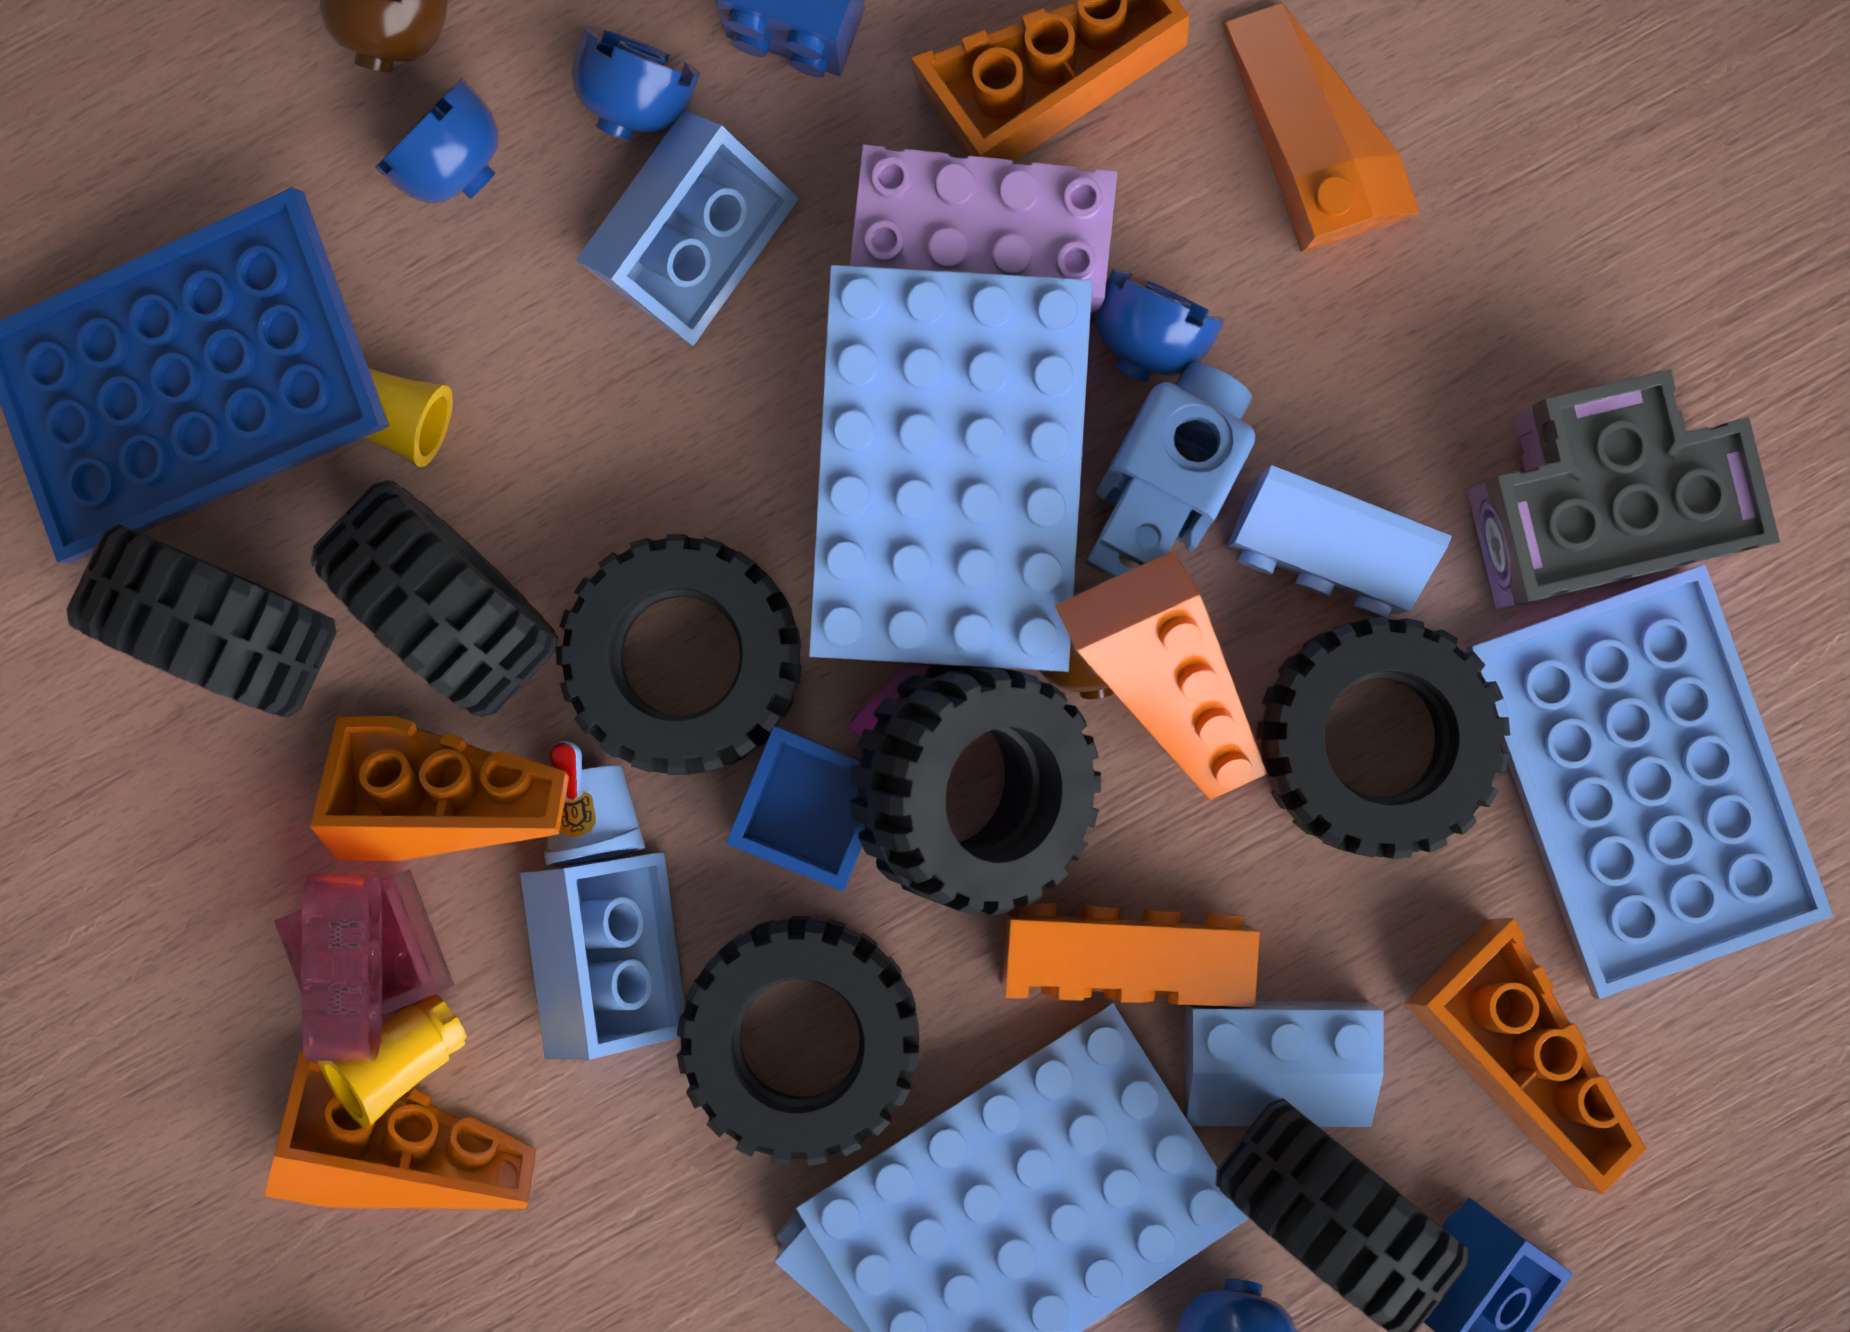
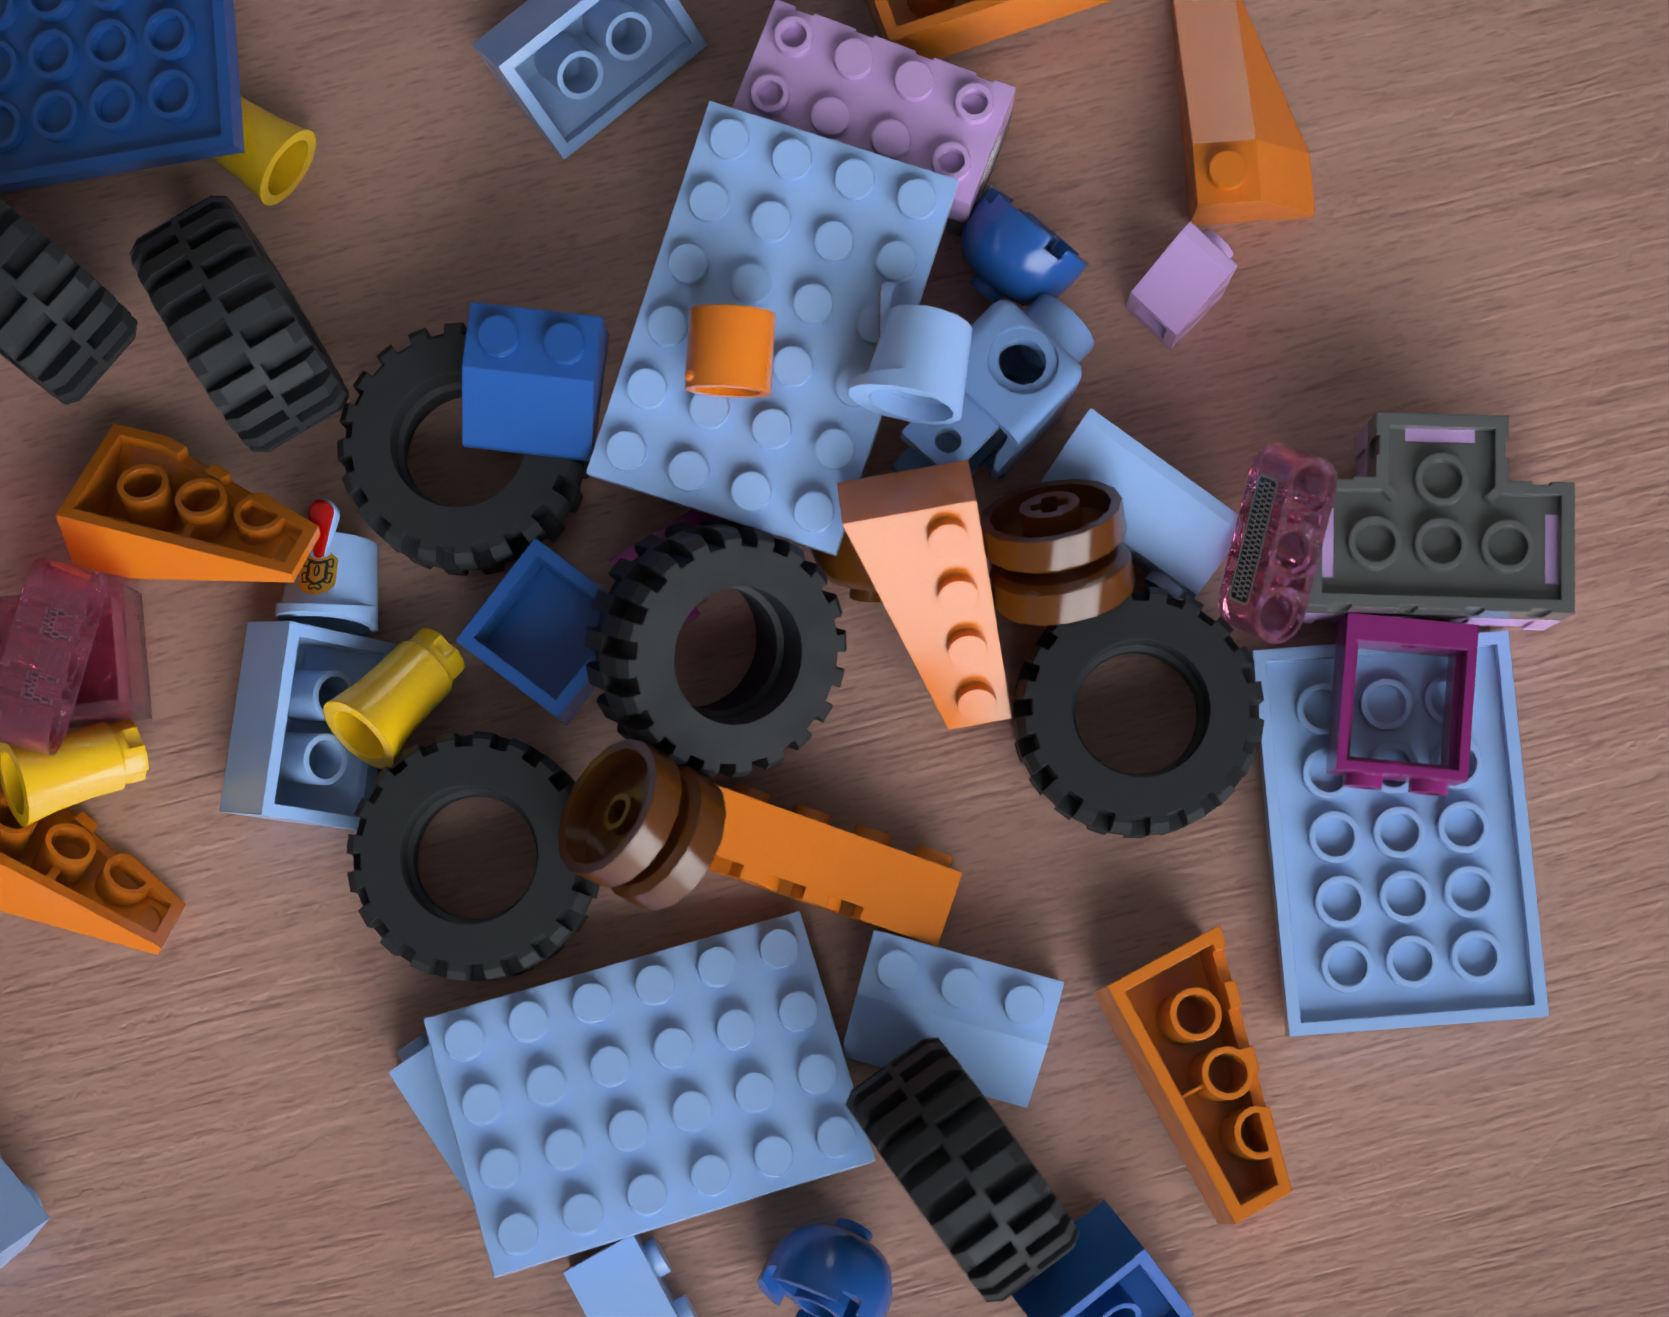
camera: 20 degrees right, 5 degrees down
(681, 909) = (394, 698): none -> yellow plant
(734, 582) = (532, 380): none -> blue slope
(922, 509) = (730, 351): none -> orange piece
(956, 980) = (641, 825): none -> reddish brown wheel
(1104, 472) = (916, 364): none -> light blue hat
(1276, 609) = (1057, 552): none -> reddish brown wheel
(1319, 316) = (1183, 284): none -> lavender slope
(1484, 549) = (1277, 542): none -> clear pink beam
(1682, 658) = (1409, 636): none -> magenta window

